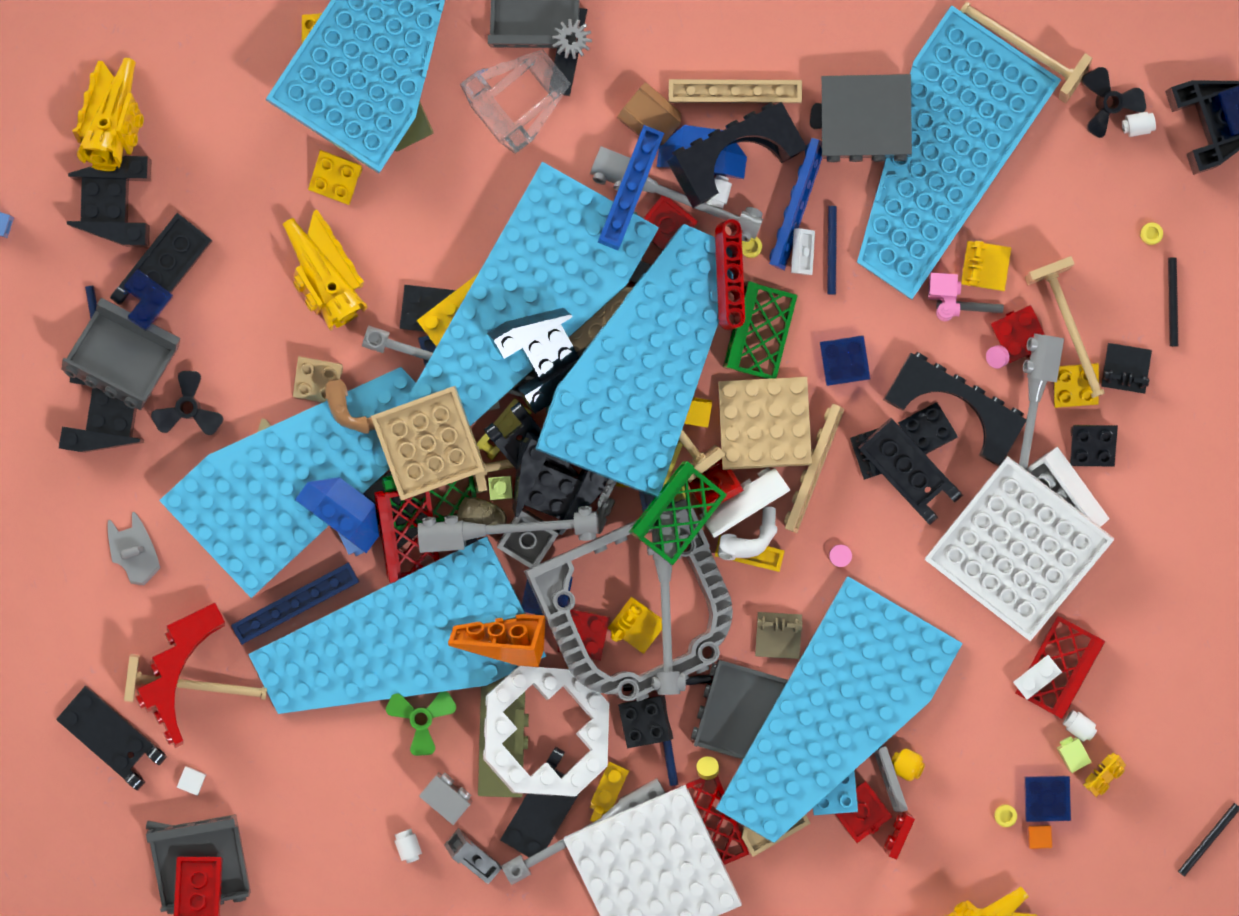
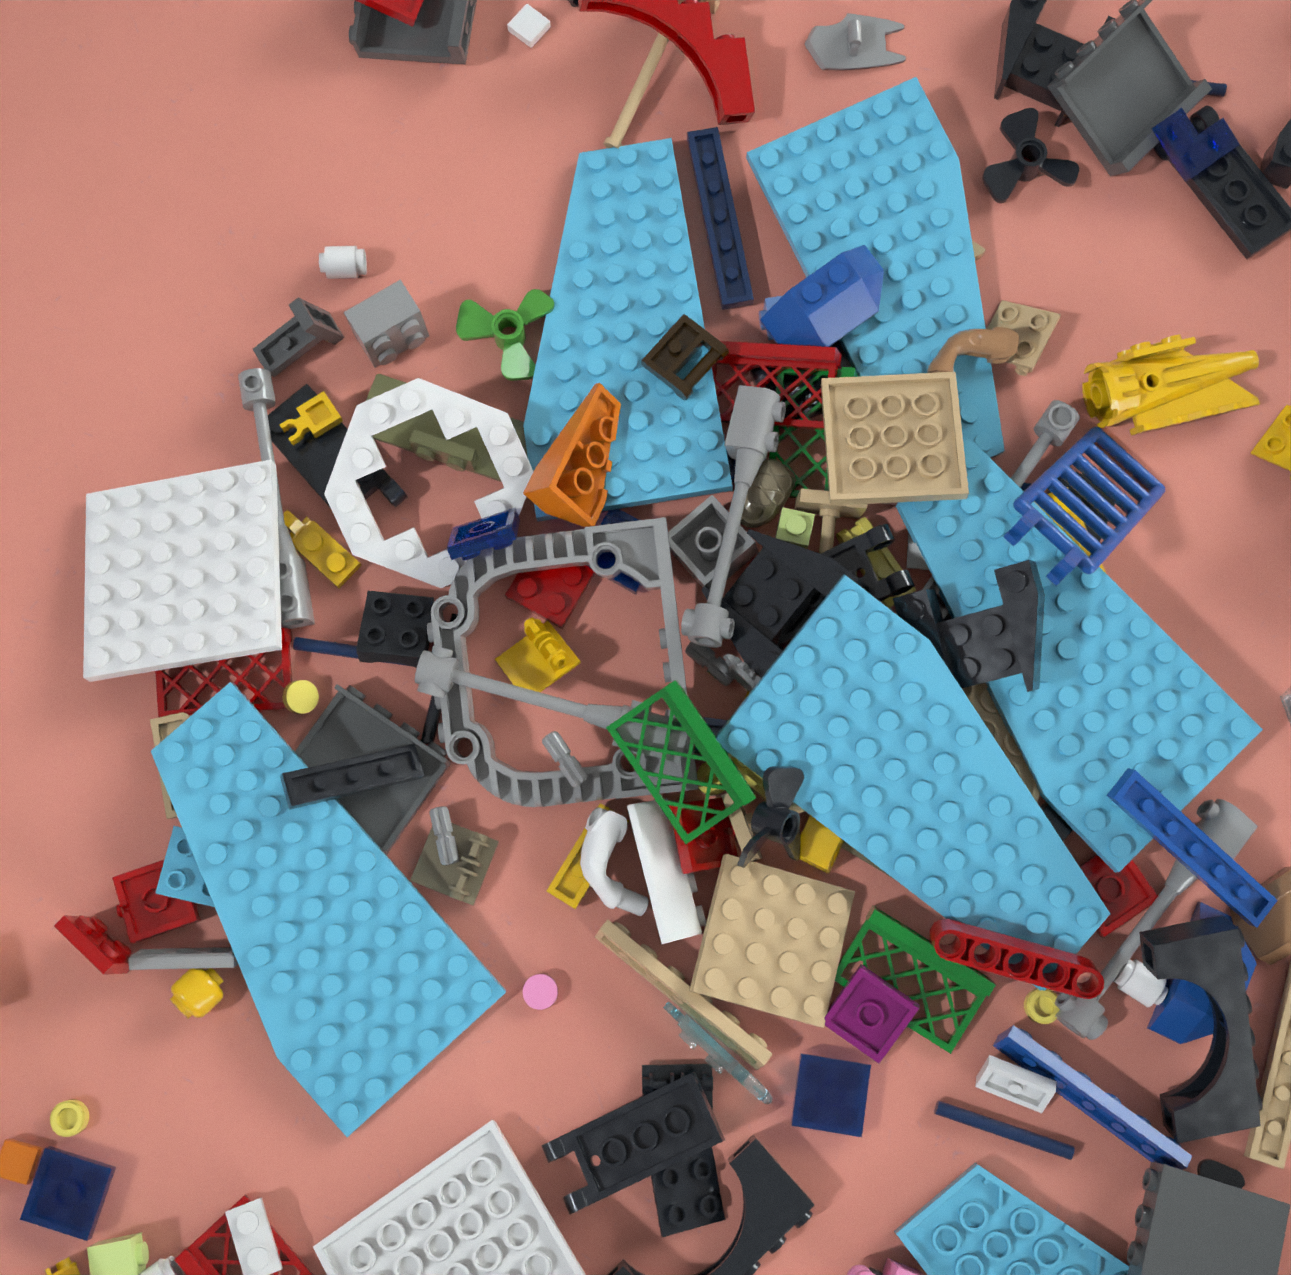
camera: 105 degrees right, 10 degrees down
(406, 600) = (677, 349): none -> dark brown plate
(438, 281) = (1061, 468): none -> blue bar
(522, 823) = (316, 416): none -> yellow plate
(571, 683) = (488, 532): none -> clear blue plate
(694, 446) = (773, 817): none -> black piece
(694, 589) = (568, 764): none -> light grey piece
(748, 713) = (351, 776): none -> black tile
(762, 648) = (442, 829): none -> light grey piece
(789, 351) = (870, 1013): none -> magenta plate
(844, 435) = (718, 1056): none -> clear light blue plate

